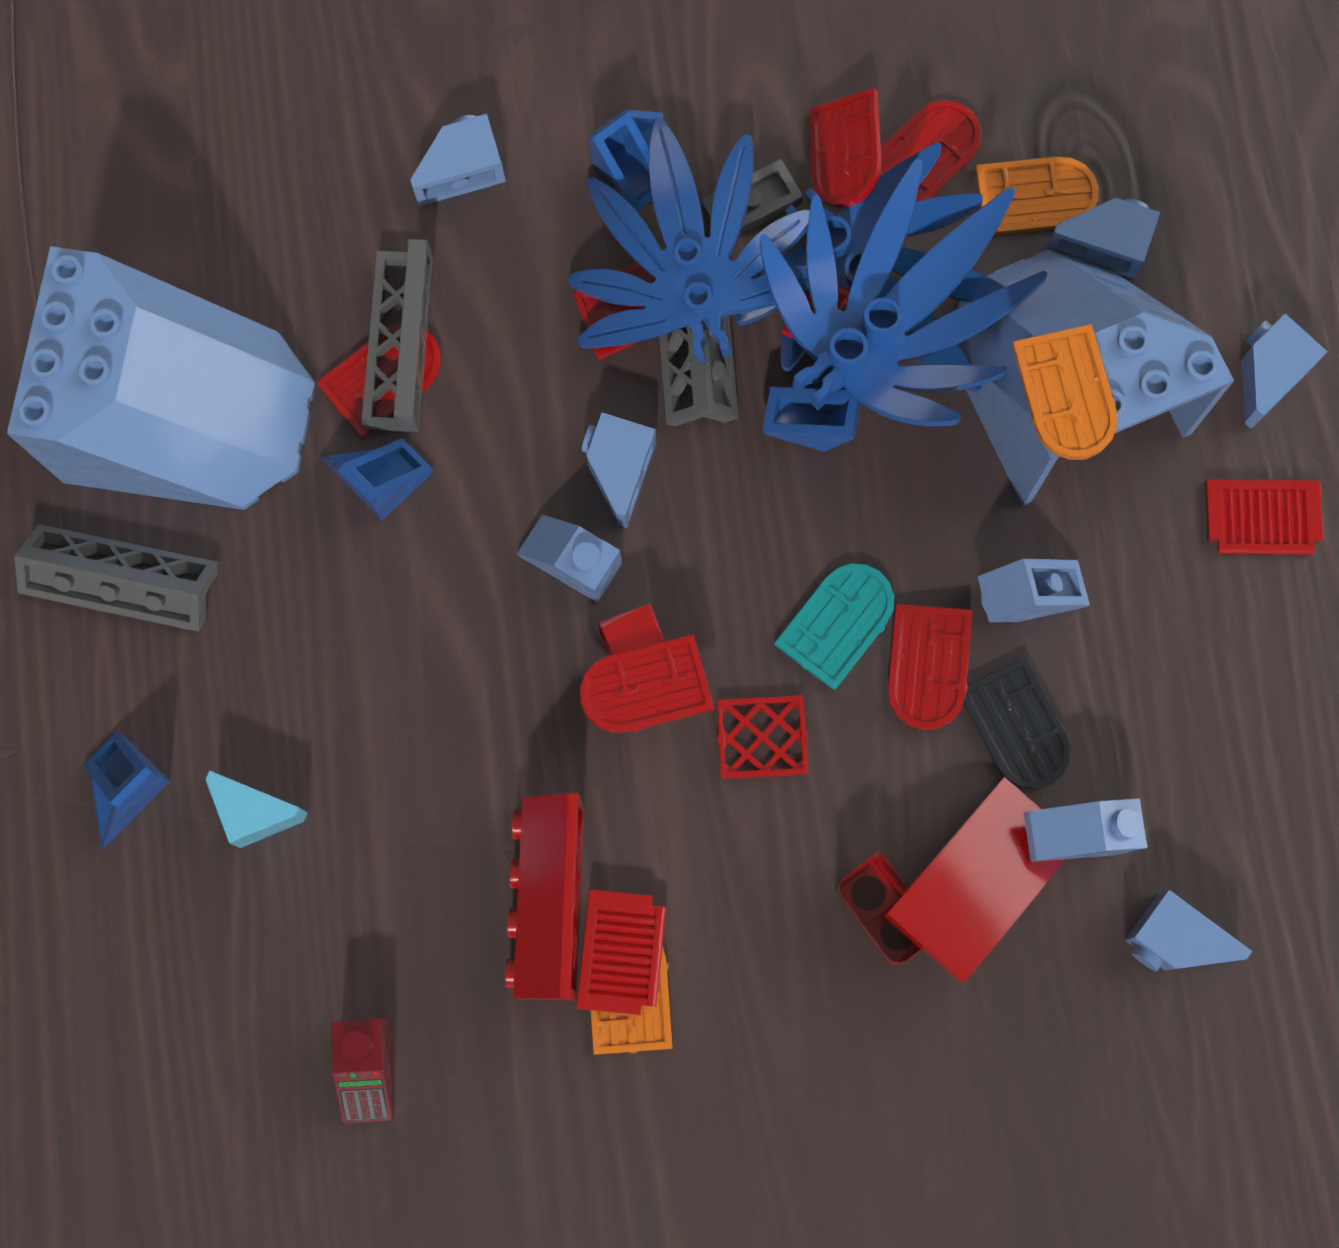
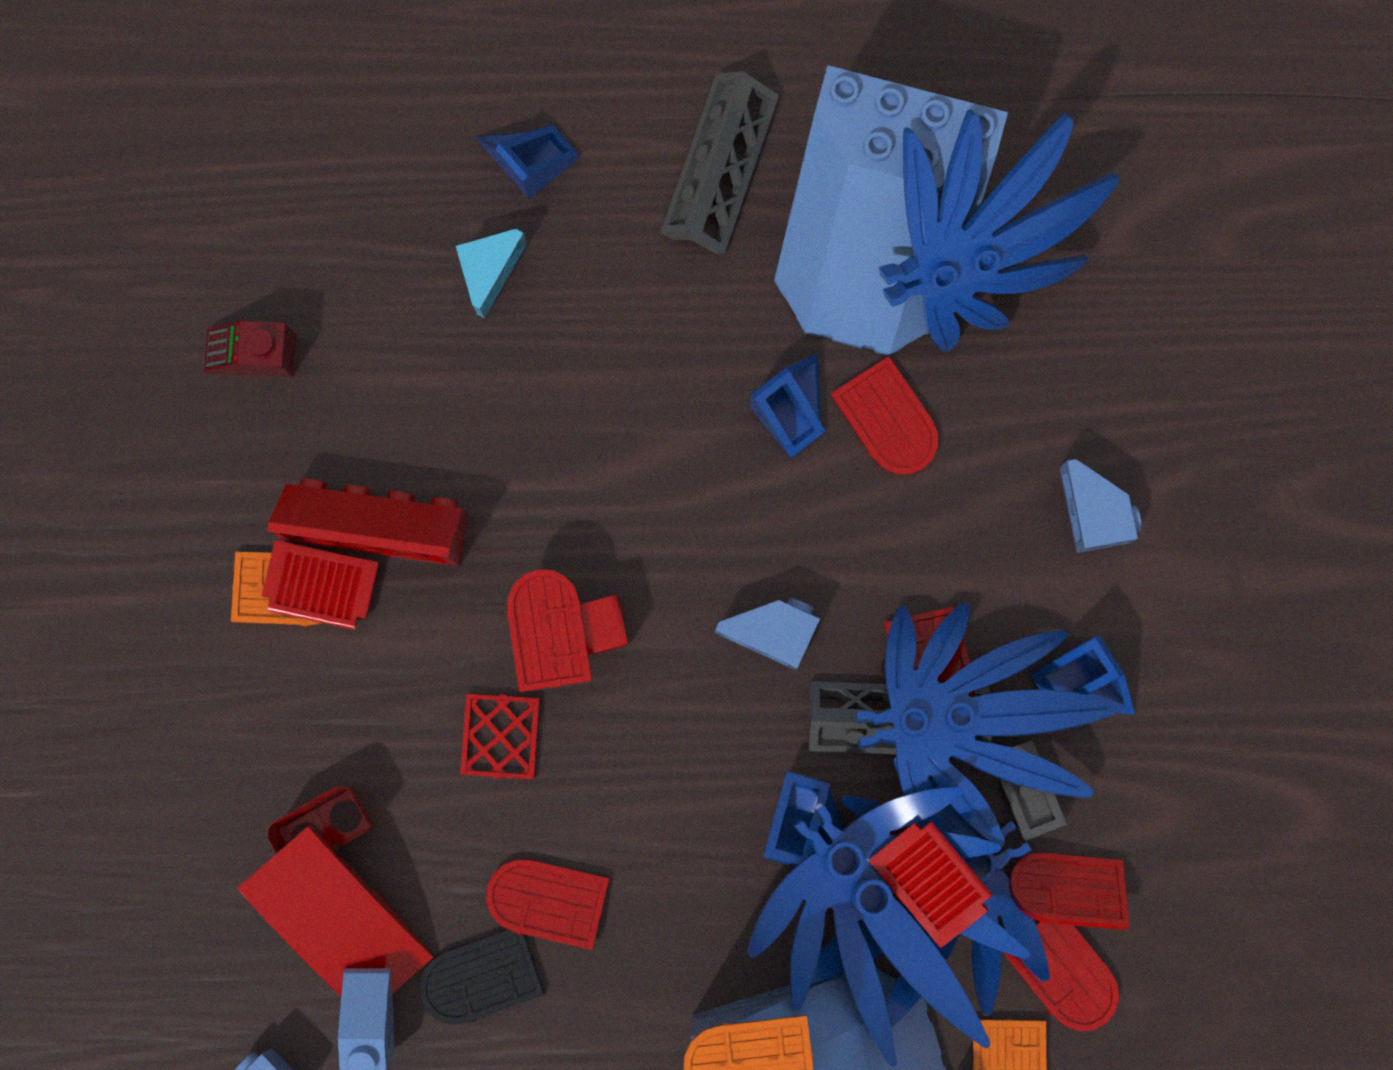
camera: 95 degrees right, 5 degrees up
(207, 271) = (958, 261): none -> blue plant
(408, 340) = (922, 448): dark grey fence -> none
(572, 556) = (689, 576): medium blue slope -> none
(839, 622) = (599, 822): teal window -> none
(856, 264) = (932, 881): none -> red window
(1032, 589) = (603, 1011): medium blue slope -> none

